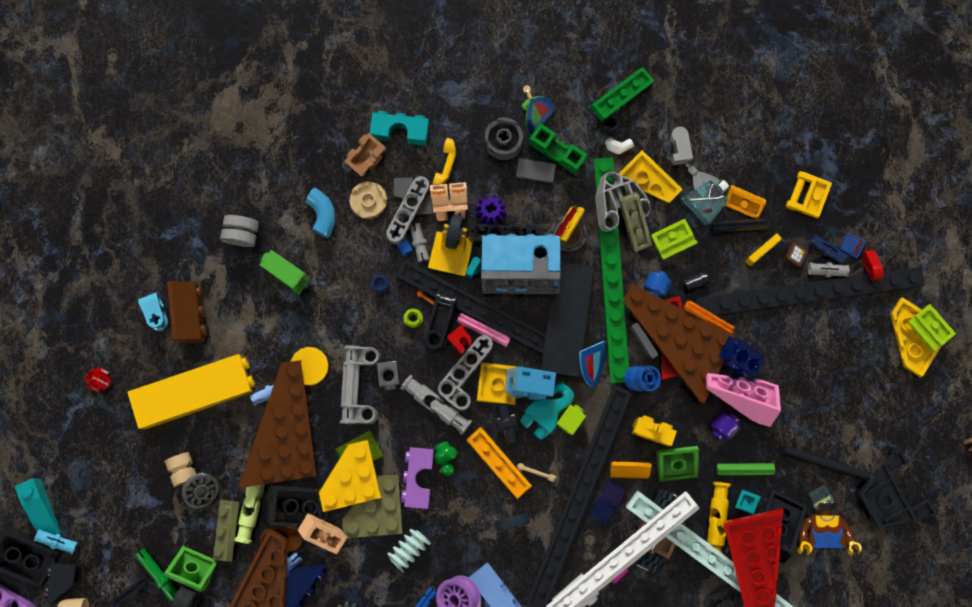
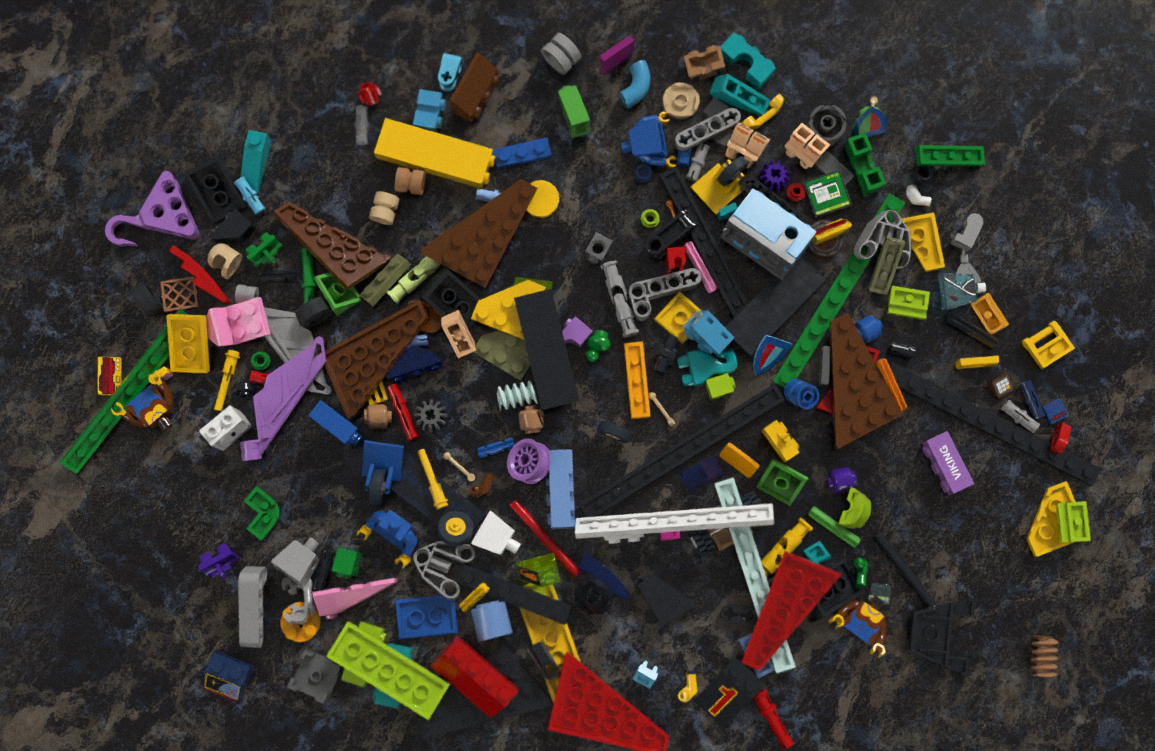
camera: 35 degrees right, 0 degrees up
(104, 580) = (265, 251): none -> green hips
(110, 410) = (361, 125): none -> clear pin
(160, 358) = (429, 110): none -> dark azure brick
(162, 535) = (333, 248): none -> reddish brown wing
(184, 431) = (408, 180): none -> medium nougat wheel
(200, 491) = (387, 234): dark grey wheel -> none
(266, 338) = (522, 153): none -> blue plate
(287, 200) = (616, 55): none -> magenta plate
(351, 411) = (549, 257): light grey piece -> none
(366, 254) = (648, 141): none -> blue torso
(406, 493) = (546, 349): none -> black tile
(413, 162) = (739, 95): none -> teal slope
(435, 560) = (531, 419): none -> medium nougat head
(495, 172) = (803, 148): none -> light nougat hips
(515, 216) = (796, 197): none -> red plate
(544, 194) = (827, 193): none -> tile
(741, 357) = (896, 434): clear blue brick -> none
(754, 399) = (881, 476): bright pink wedge -> none
(756, 441) = (858, 512): none -> lime cylinder
(791, 486) = (862, 566): none -> green arm
(798, 351) = (947, 463): none -> medium lavender brick

